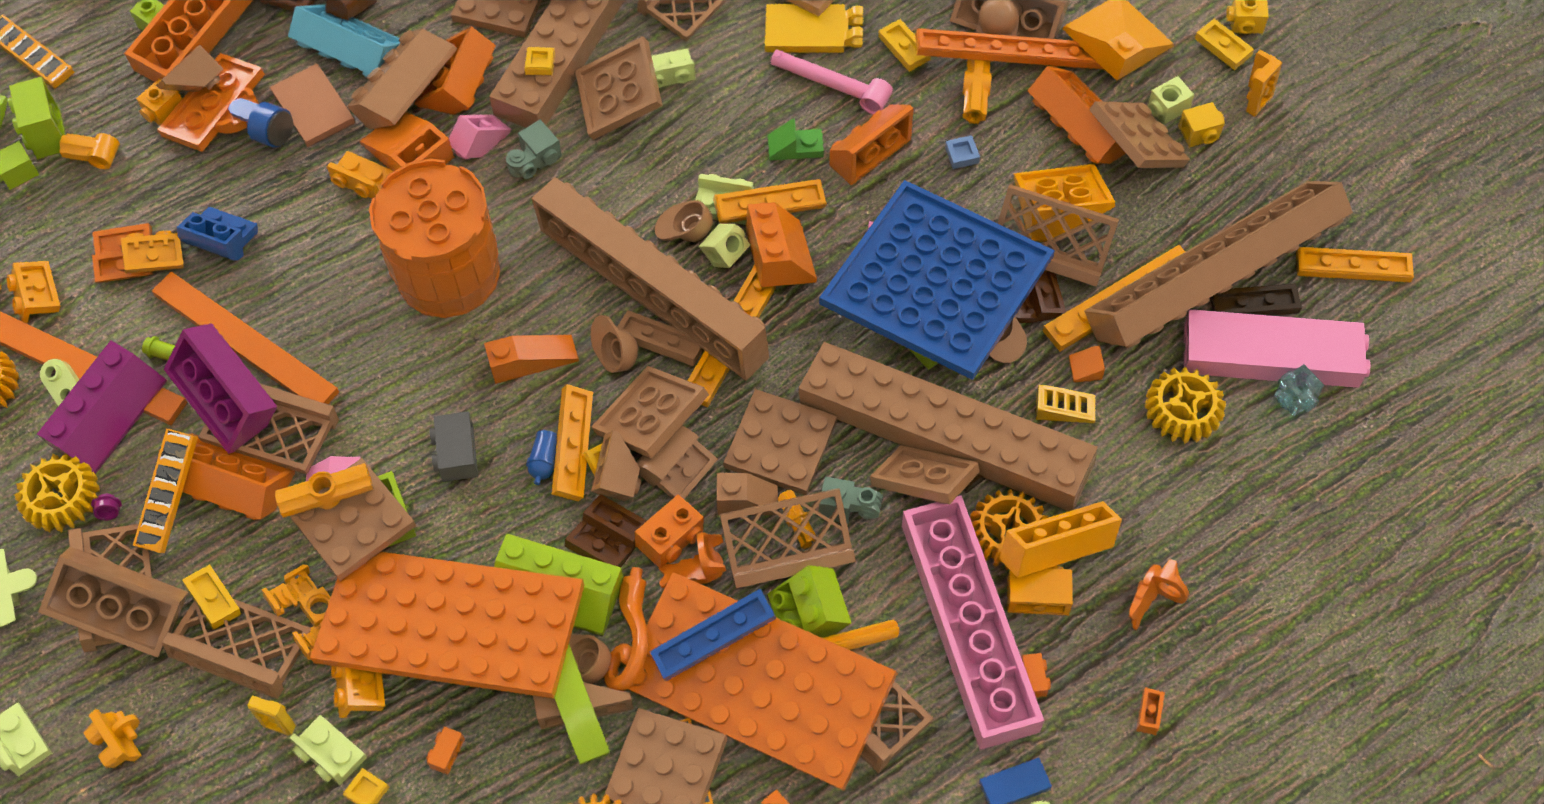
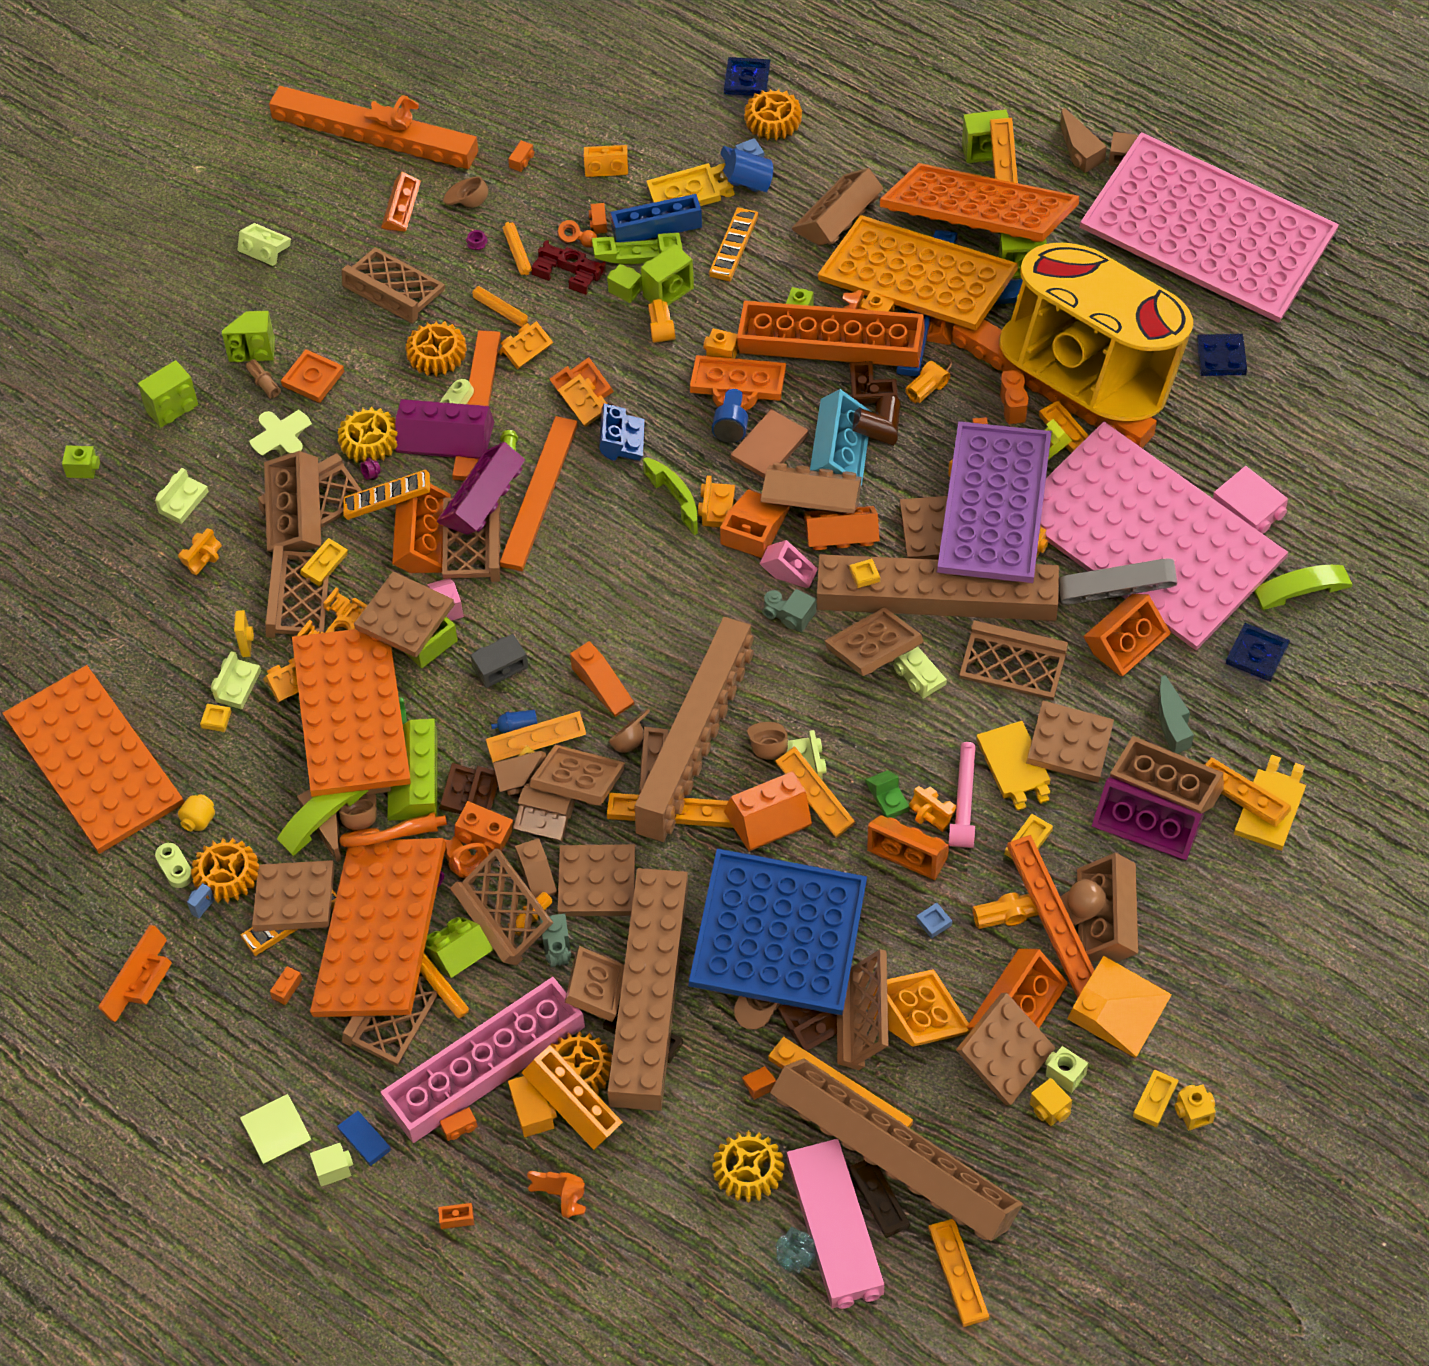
camera: 70 degrees right, 5 degrees down
(193, 72) = (746, 351): medium nougat slope -> none
(307, 496) = (403, 576): light orange piece -> none
(320, 203) = (662, 475): none -> lime slope
(436, 237) = (655, 567): orange piece -> none
(445, 750) = (260, 753): orange piece -> none
(713, 634) = (395, 879): blue plate -> none
(715, 245) = (746, 776): yellowish green brick -> none
(834, 110) = (930, 809): none -> light orange hips
(1057, 394) = (709, 1059): yellow slope -> none
(1262, 81) = (1113, 1137): light orange bracket -> none

